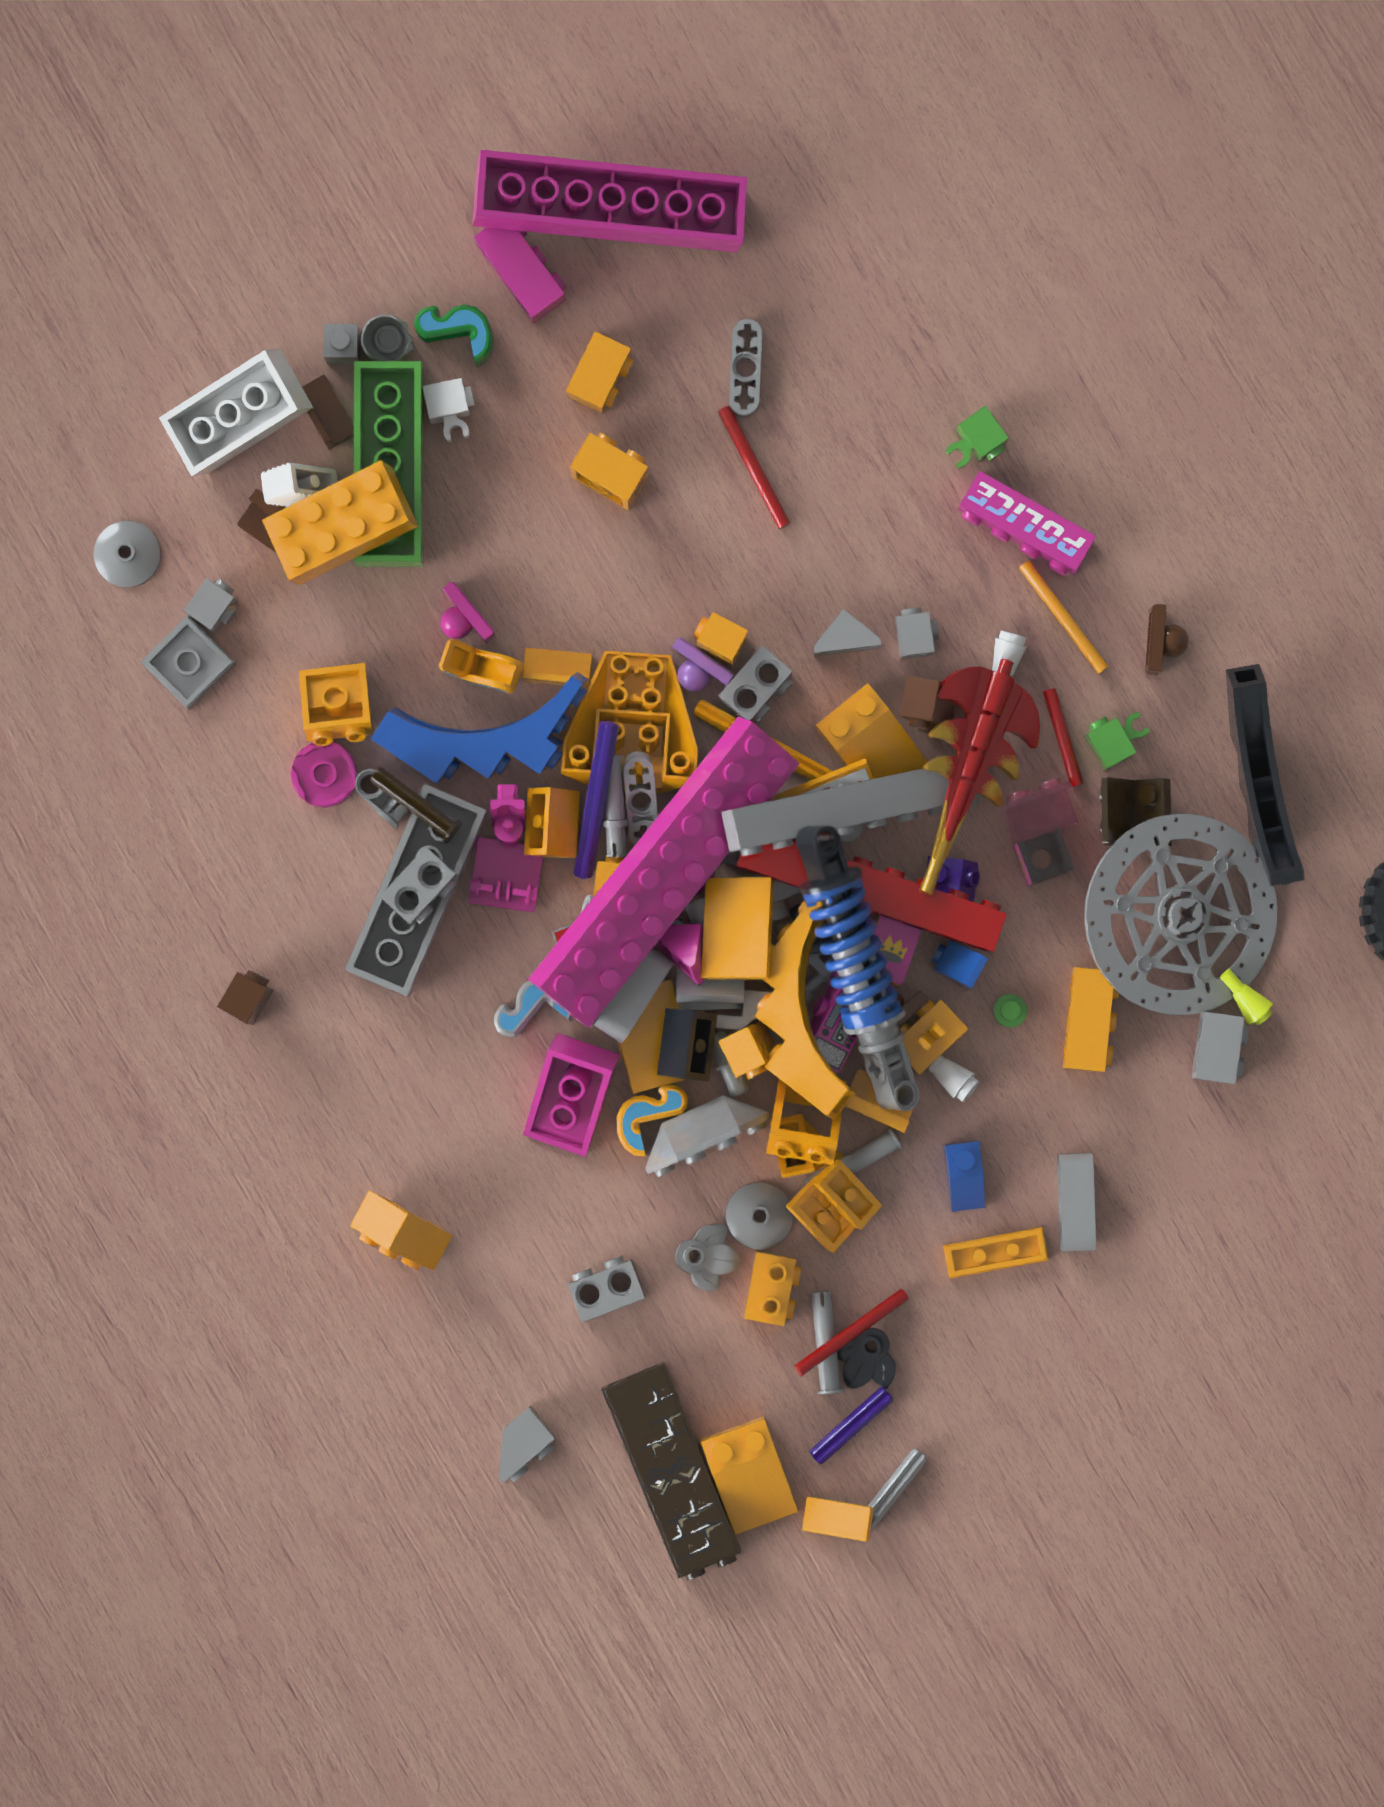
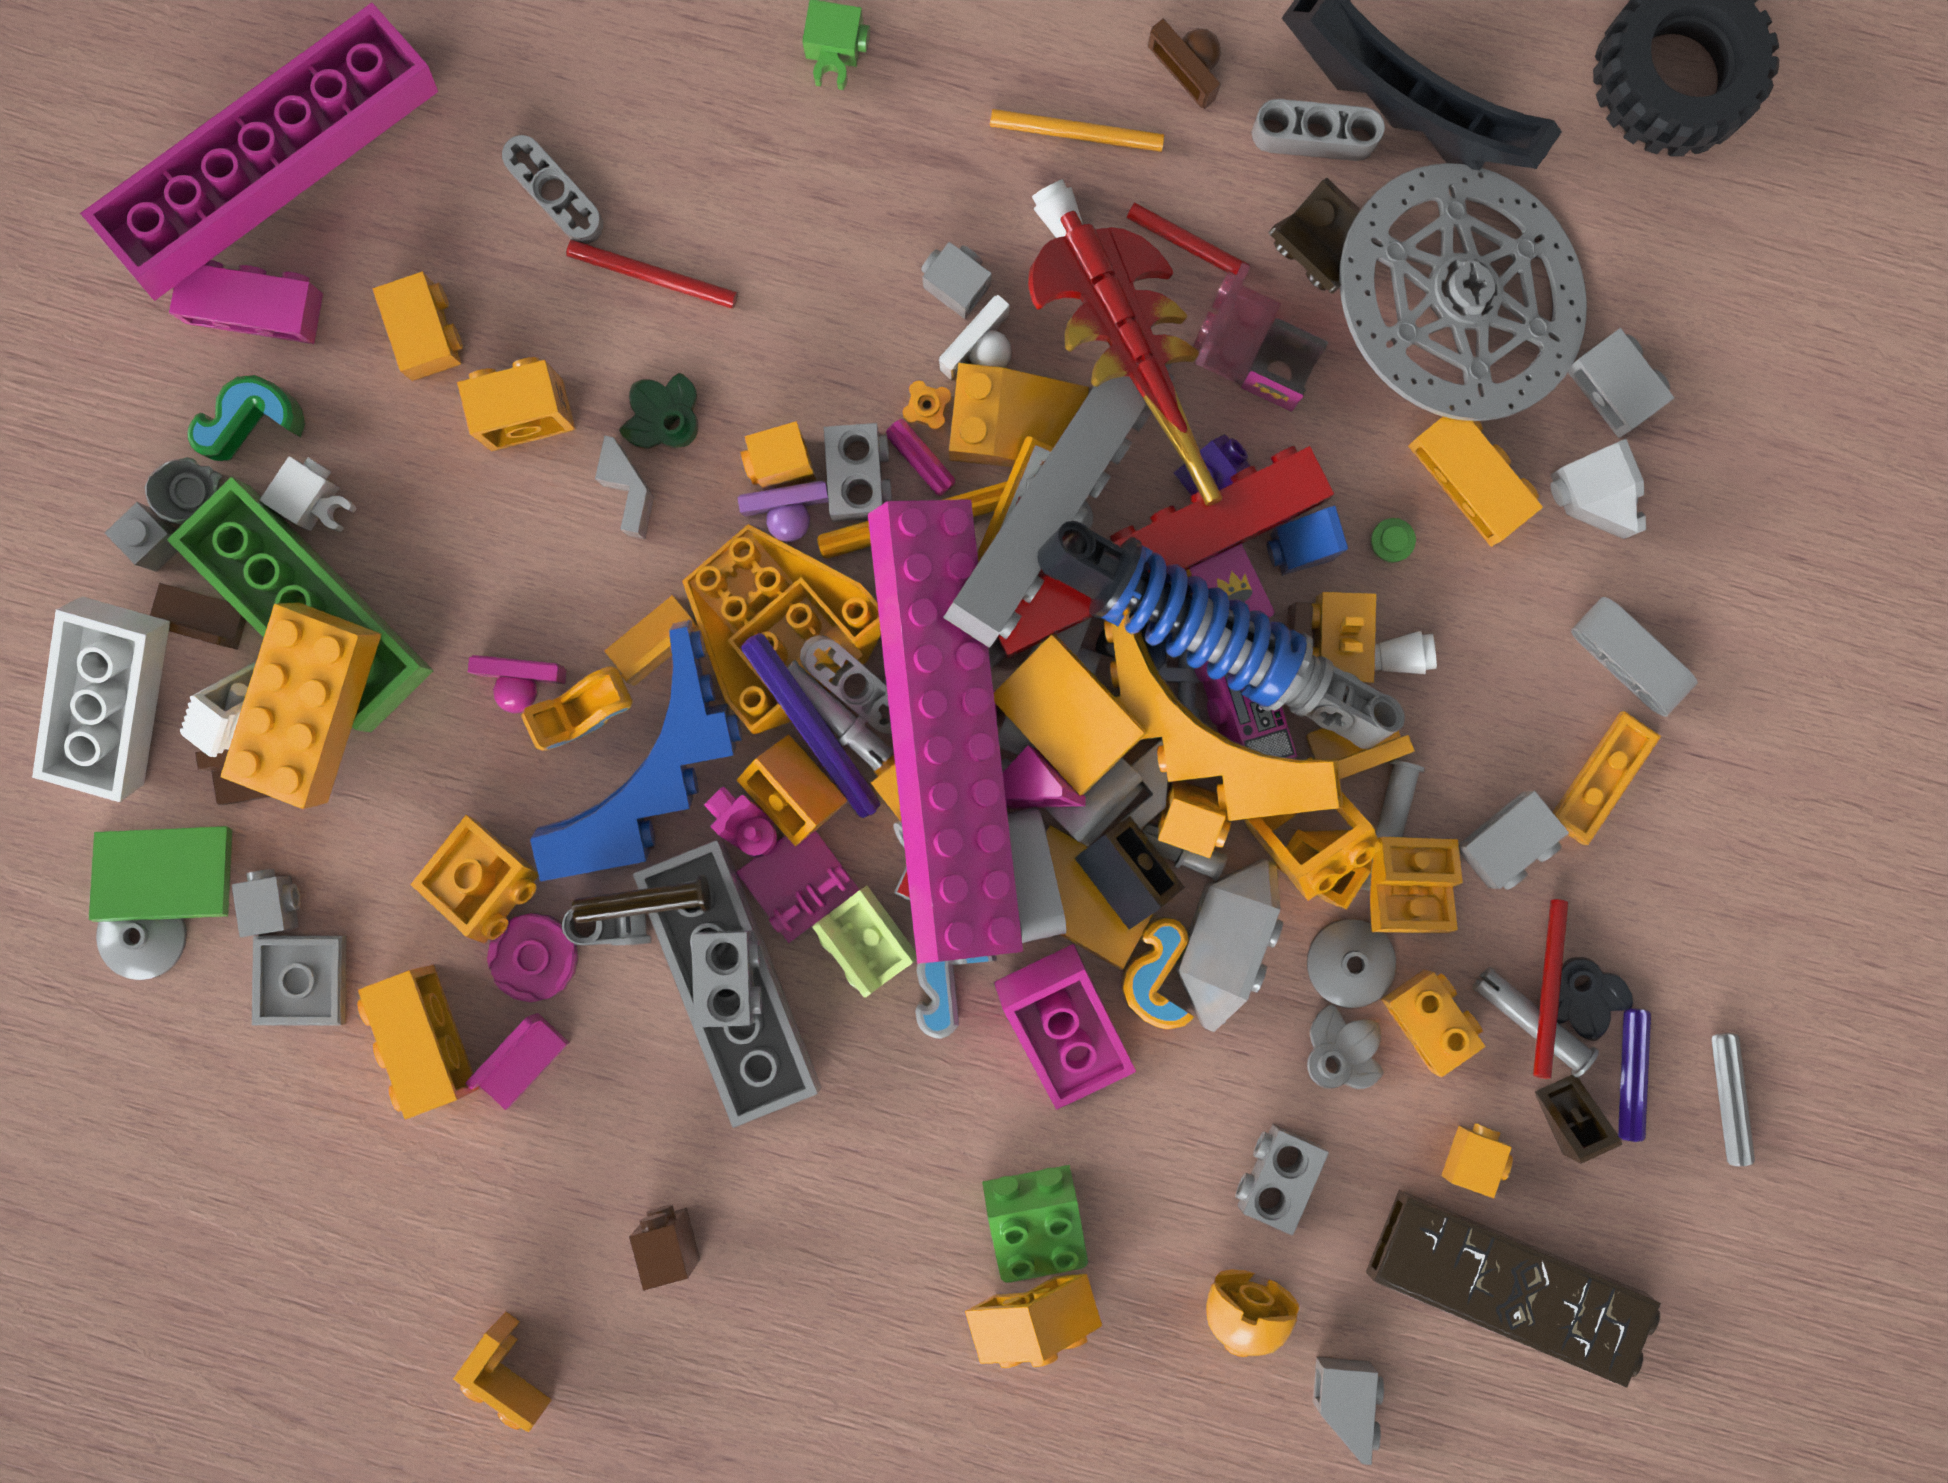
camera: 45 degrees left, 0 degrees up
(82, 972) = (490, 1381): none -> light orange bracket
(171, 532) = (160, 874): none -> bright green tile
(222, 758) = (416, 1040): none -> light orange brick
(263, 822) = (519, 1060): none -> dark pink panel
(450, 1183) = (1035, 1224): none -> bright green bracket
(510, 942) = (865, 942): none -> yellowish green bracket
(516, 1343) = (1248, 1315): none -> light orange cylinder
(629, 560) = (619, 473): none -> light grey slope
(682, 544) = (657, 409): none -> dark green plate
(721, 1385) = (1478, 1160): none -> light orange brick
(749, 1475) = (1585, 1217): light orange slope -> none
(795, 1414) = (1576, 1120): none -> dark brown slope
(799, 711) = (920, 457): none -> dark pink axle
(832, 677) = (917, 413): none -> light orange plate
(838, 1518) = (1713, 1175): light orange tile -> none
(846, 635) = (894, 342): light grey slope -> none
(891, 681) = (980, 341): none -> white tile
(911, 1235) = (1513, 841): none -> light grey brick
(922, 705) = (1031, 330): reddish brown brick -> none
(965, 1175) = (1505, 733): blue slope -> none
(1025, 523) = (957, 75): dark pink brick -> none
(1111, 741) = (1238, 195): bright green brick -> none
(1146, 1094) = (1603, 490): none -> slope
(1189, 730) = (1336, 120): none -> light grey beam
(1251, 1003) = (1605, 311): neon yellow cone -> none

